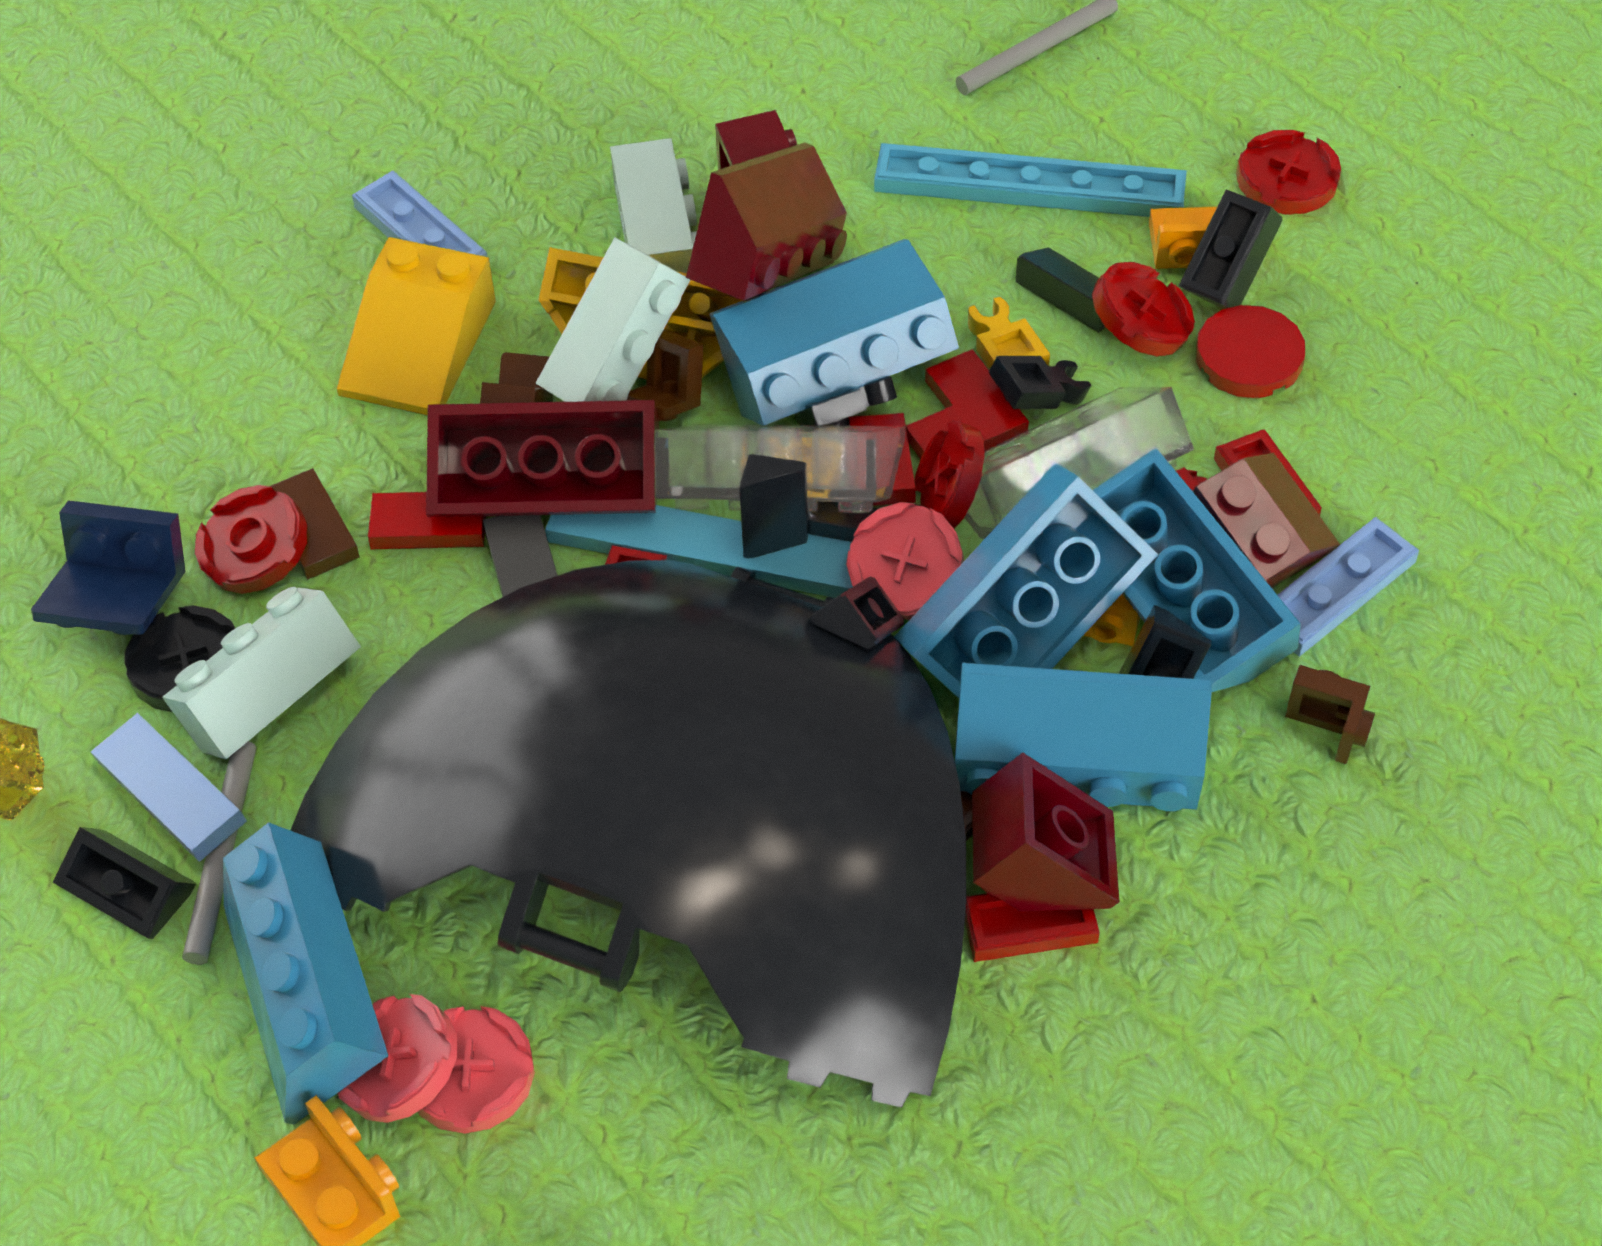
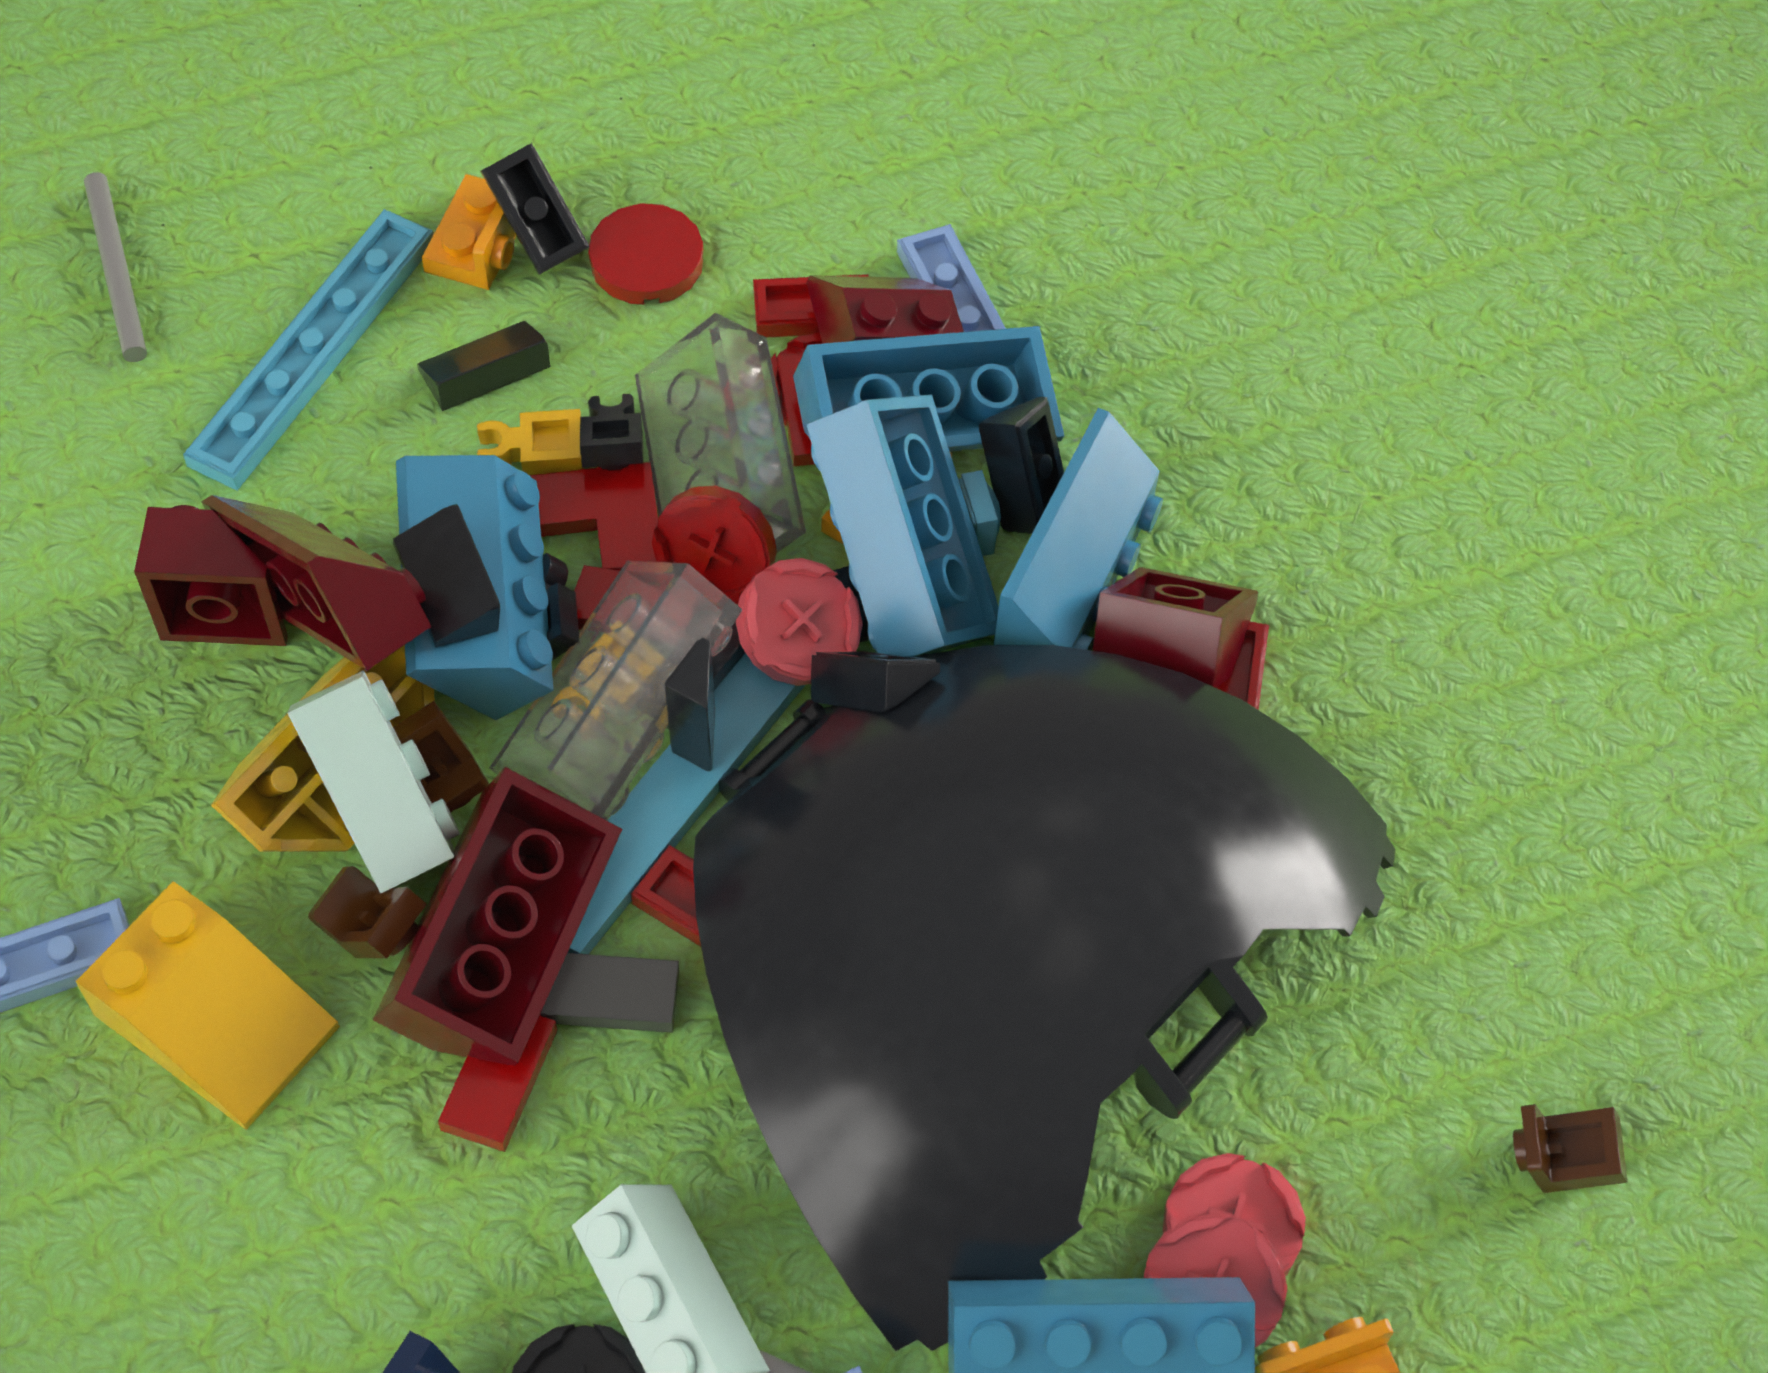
camera: 75 degrees left, 5 degrees up
(251, 539) = (446, 1273): red tile -> none
(327, 536) = (442, 1205): reddish brown tile -> none
(652, 202) = (167, 702): light aqua brick -> none
(800, 301) = (452, 576): none -> black slope
(1101, 653) = (983, 509): none -> medium azure tile
(1143, 309) = (560, 311): red tile -> none
(1288, 171) = (427, 133): red tile -> none
(1332, 704) = (1102, 348): reddish brown bracket -> none

